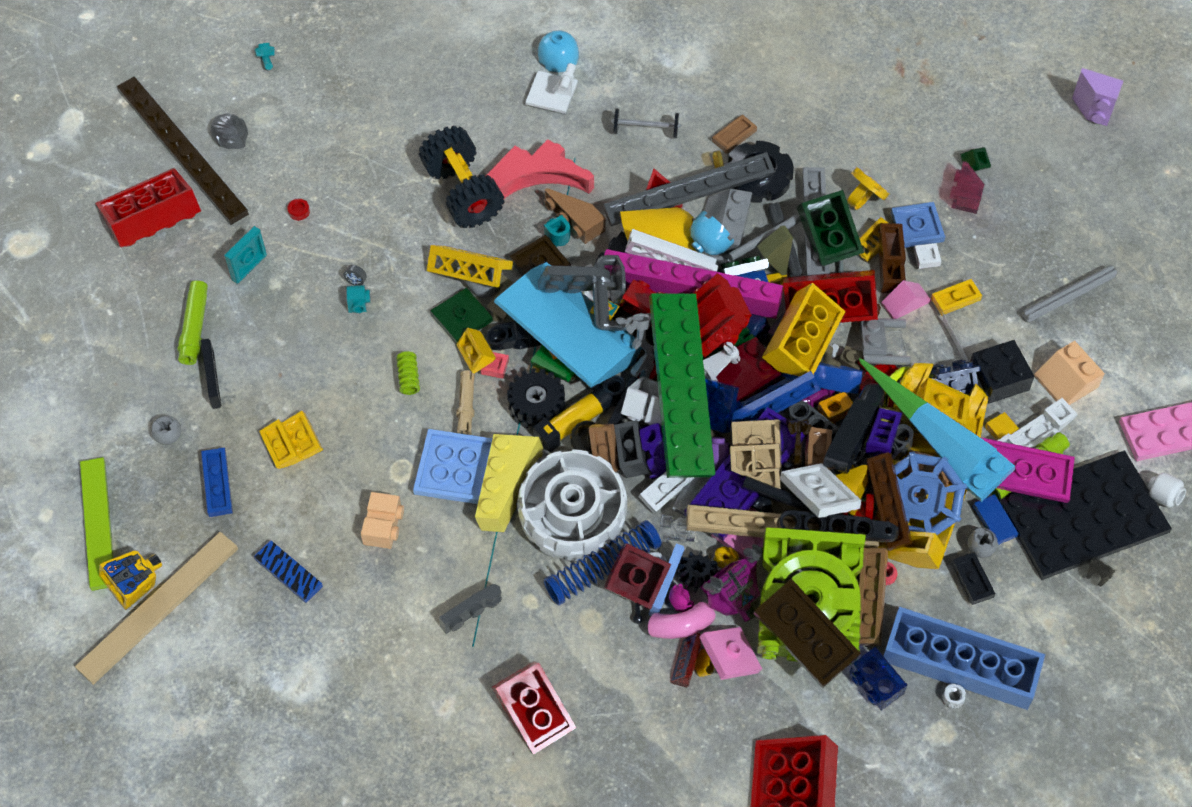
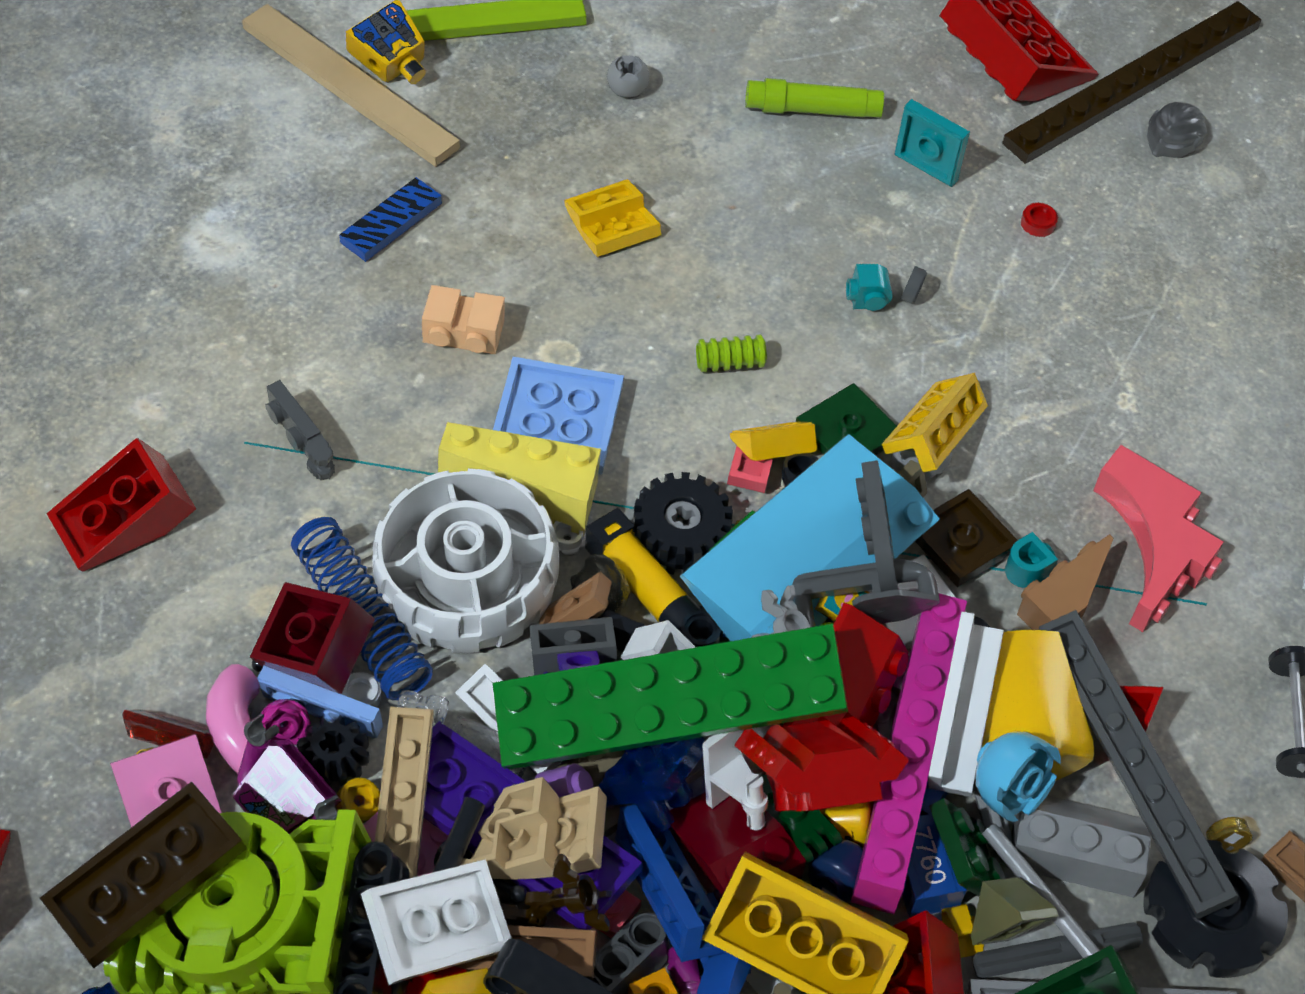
camera: 85 degrees right, 5 degrees down
(211, 373) = (724, 119): black tile -> none
(217, 482) = (541, 134): blue plate -> none
(465, 411) = (674, 429): tan pin -> none
(476, 197) = (1155, 397): black plate -> none

